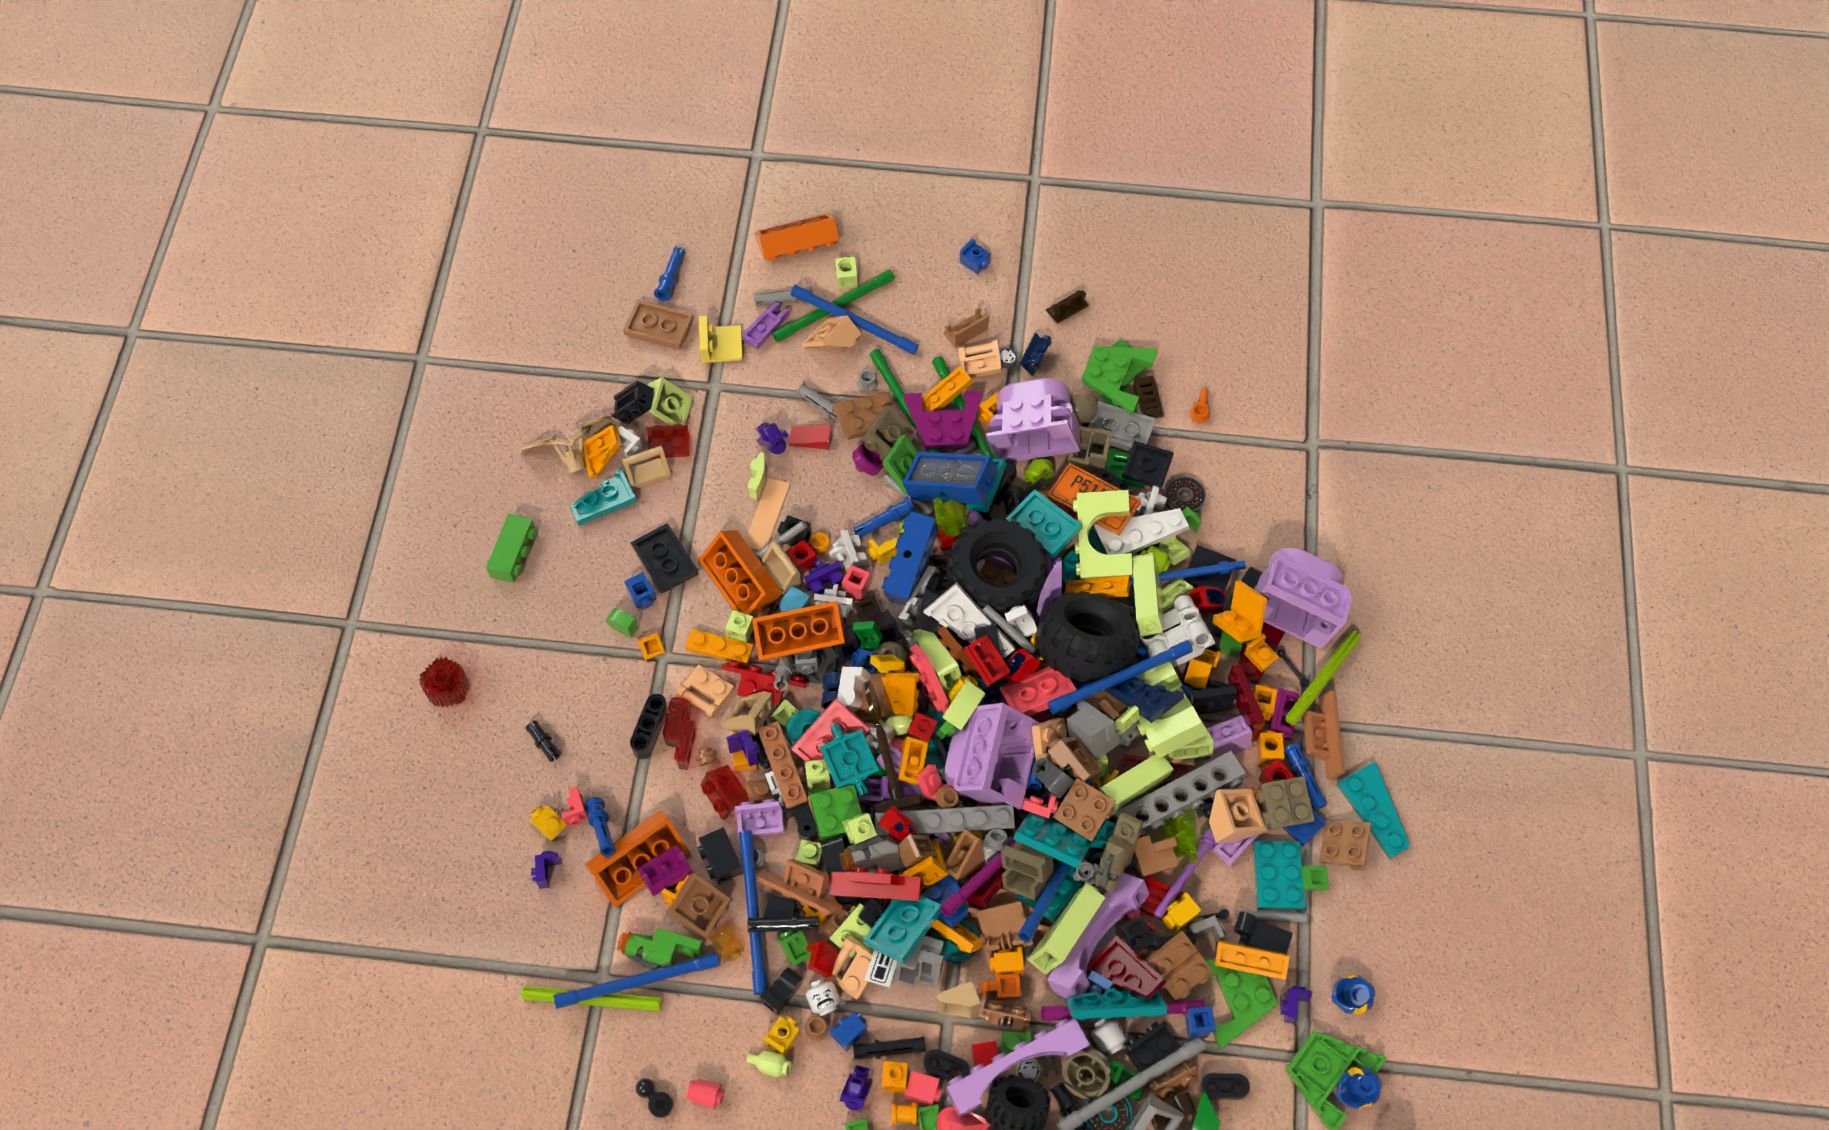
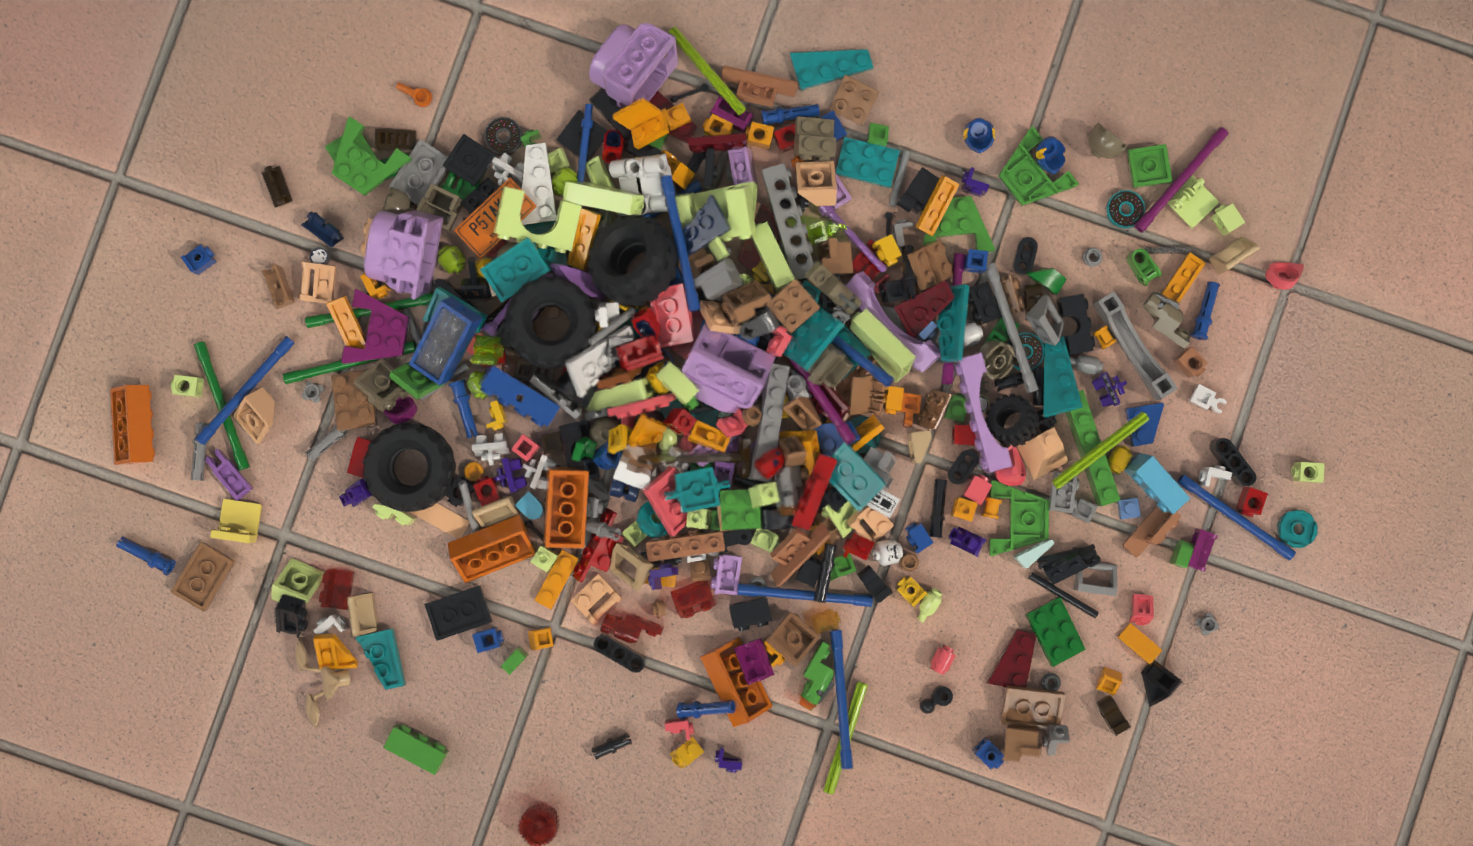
camera: 75 degrees left, 25 degrees up
(810, 451) = (380, 463): none -> black tyre

